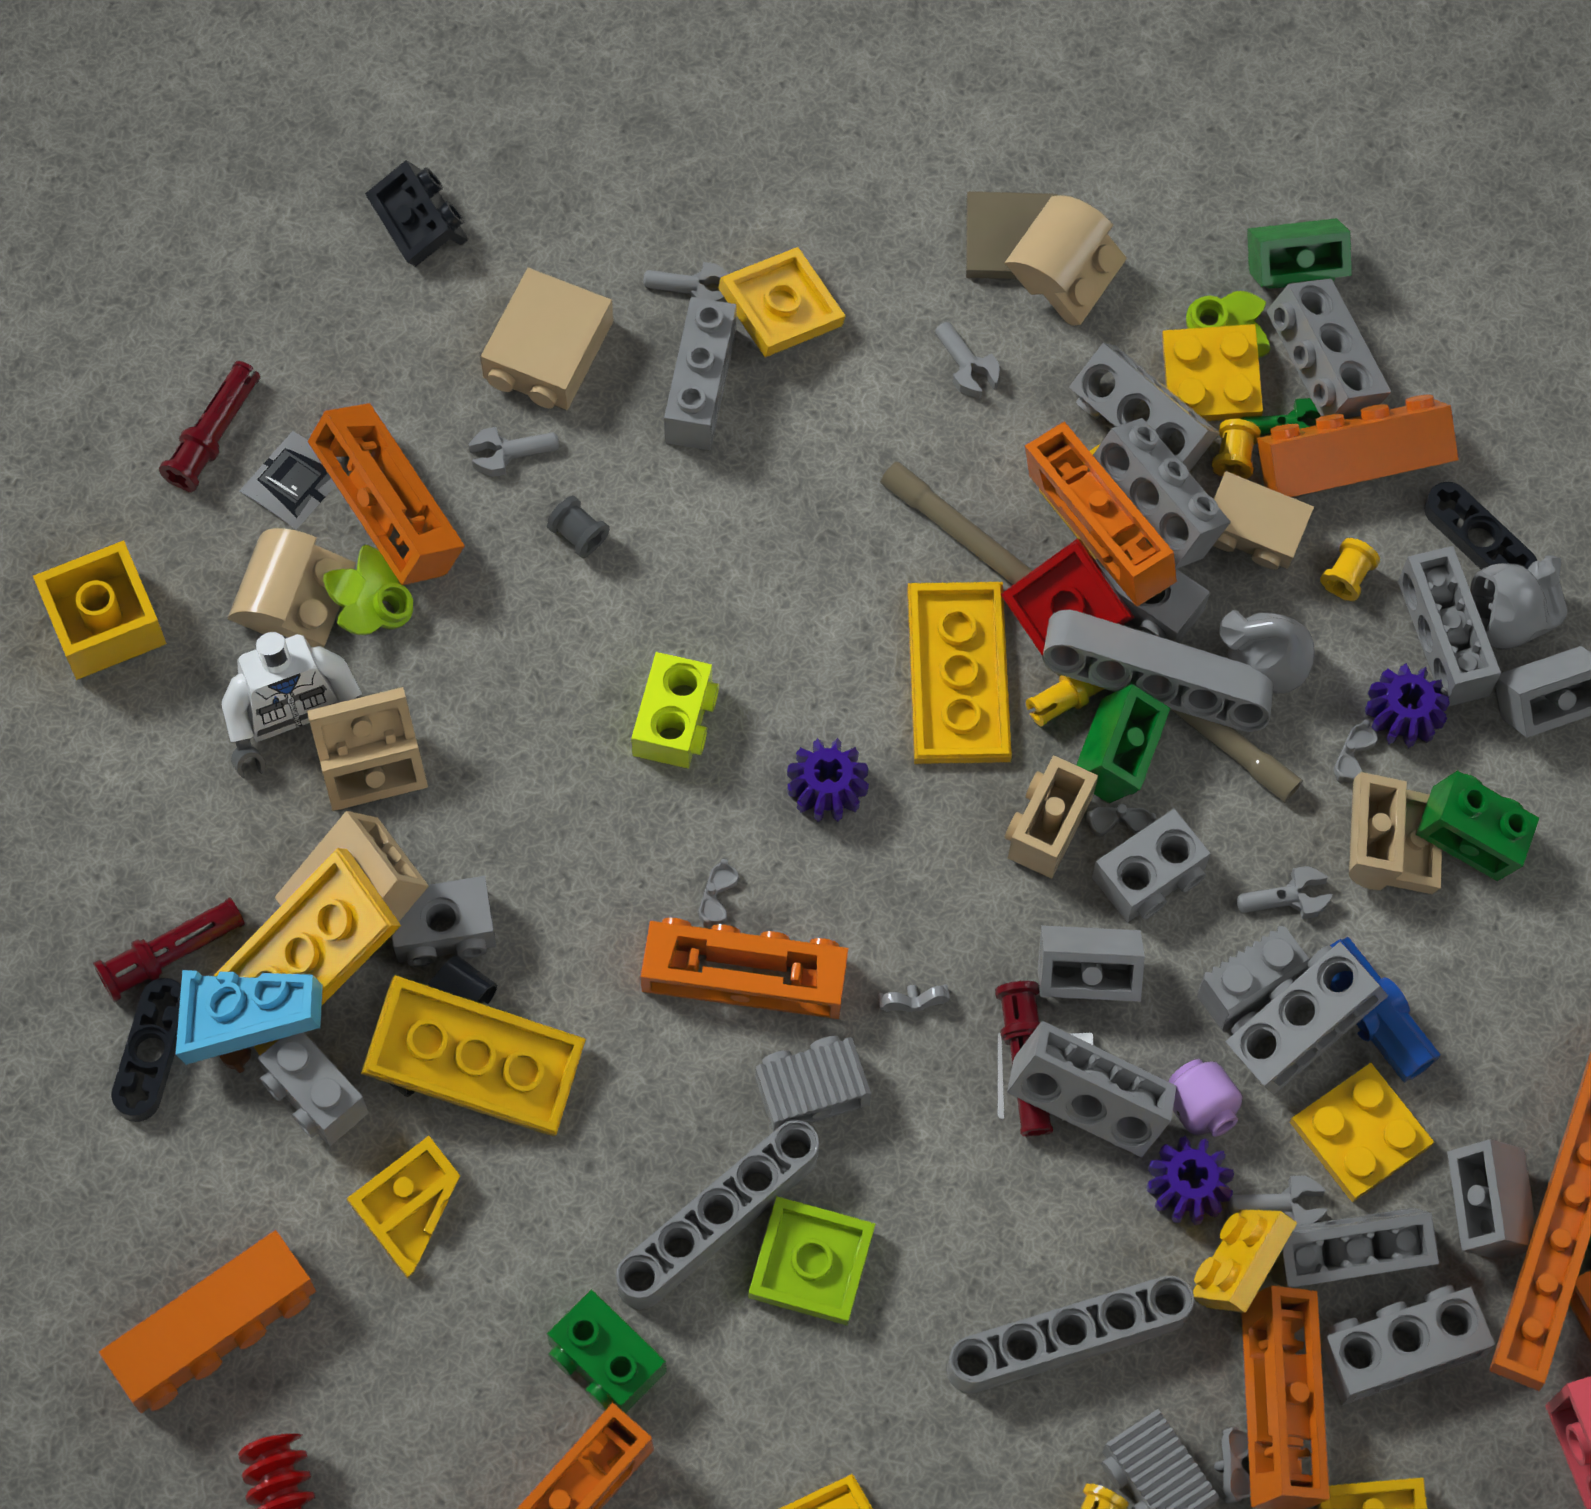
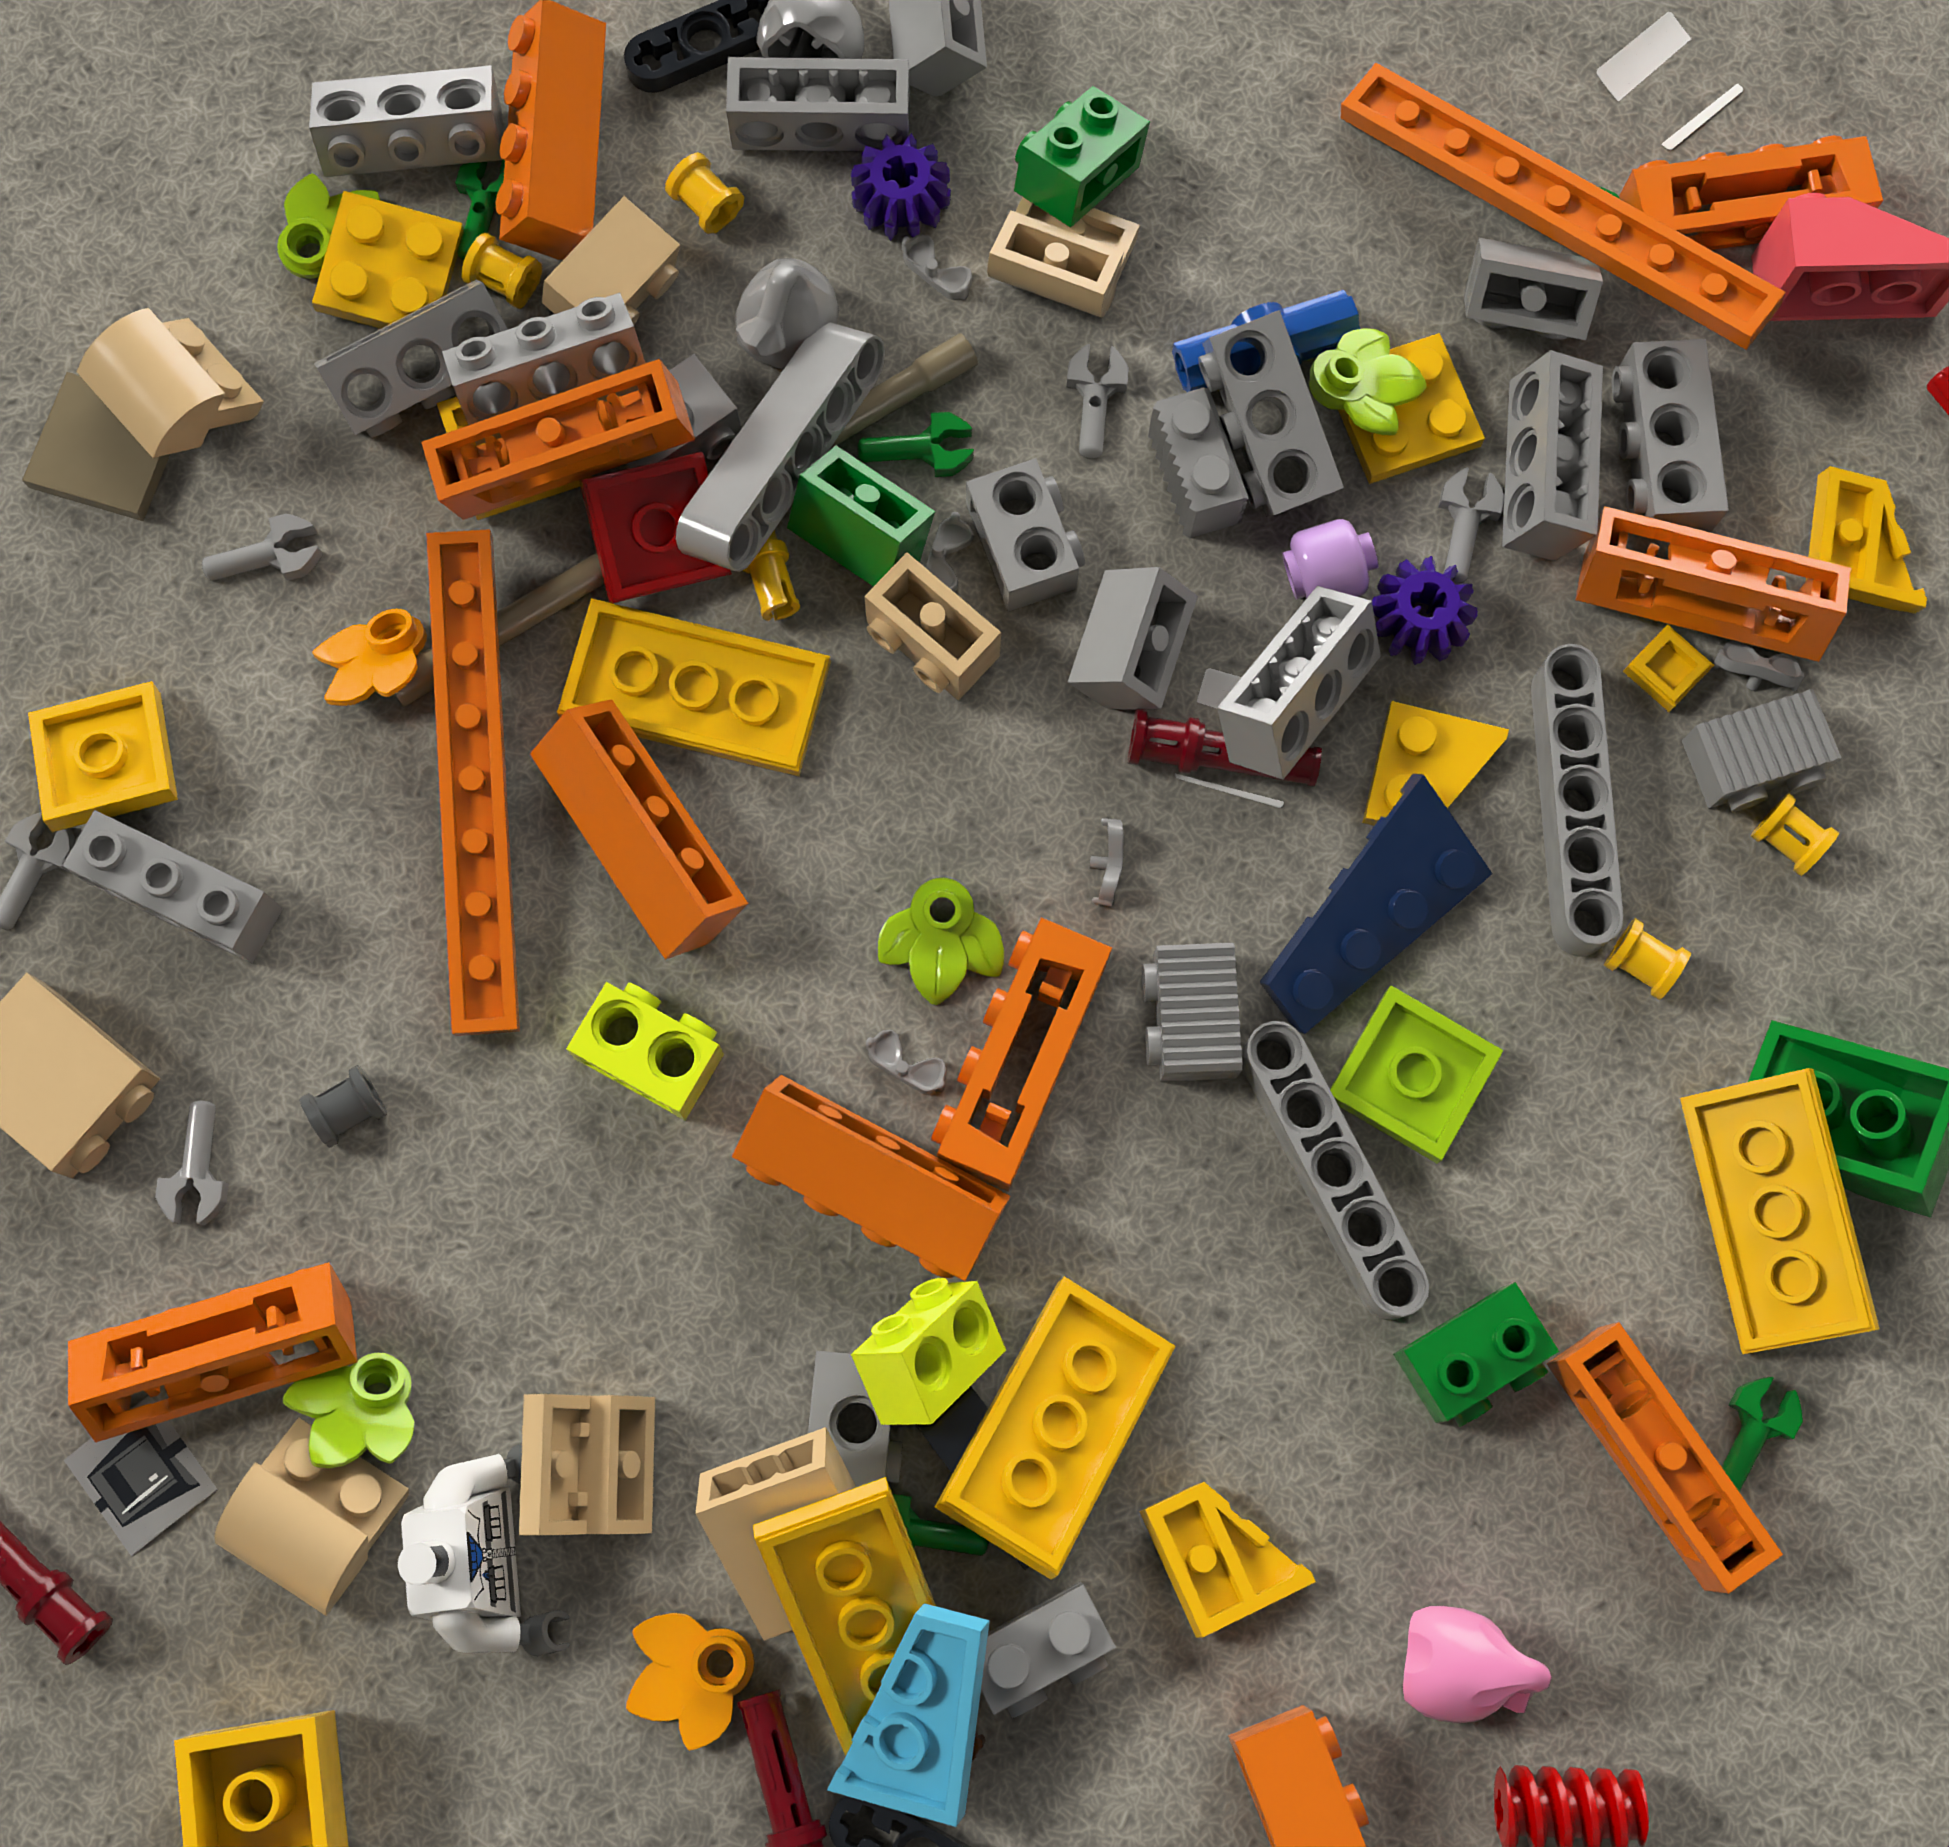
camera: 75 degrees left, 10 degrees up
(236, 858) = (680, 1680): none -> light orange plate
(366, 1387) = (1465, 1667): none -> bright pink piece
(378, 988) = (939, 1534): none -> green bar
(494, 955) = (928, 1352): none -> neon yellow brick
(620, 883) = (870, 1178): none -> orange brick
(809, 892) = (941, 950): none -> lime plate
(829, 794) = (773, 883): dark purple gear -> none
(833, 657) = (635, 826): none -> orange brick
(835, 538) = (472, 783): none -> orange plate
(909, 450) = (372, 657): none -> light orange plate
(948, 1207) = (1388, 897): none -> dark blue wing
(957, 1420) = (1647, 959): none -> yellow bush
(1064, 1215) = (1431, 744): none -> yellow wing
(1202, 780) = (923, 446): none -> green bar
(1209, 1391) = (1668, 668): none -> yellow tile
(1242, 1260) = (1549, 574): yellow plate -> none
(1299, 252) = (260, 109): green brick -> none
(1368, 1092) = (1365, 380): none -> lime plate

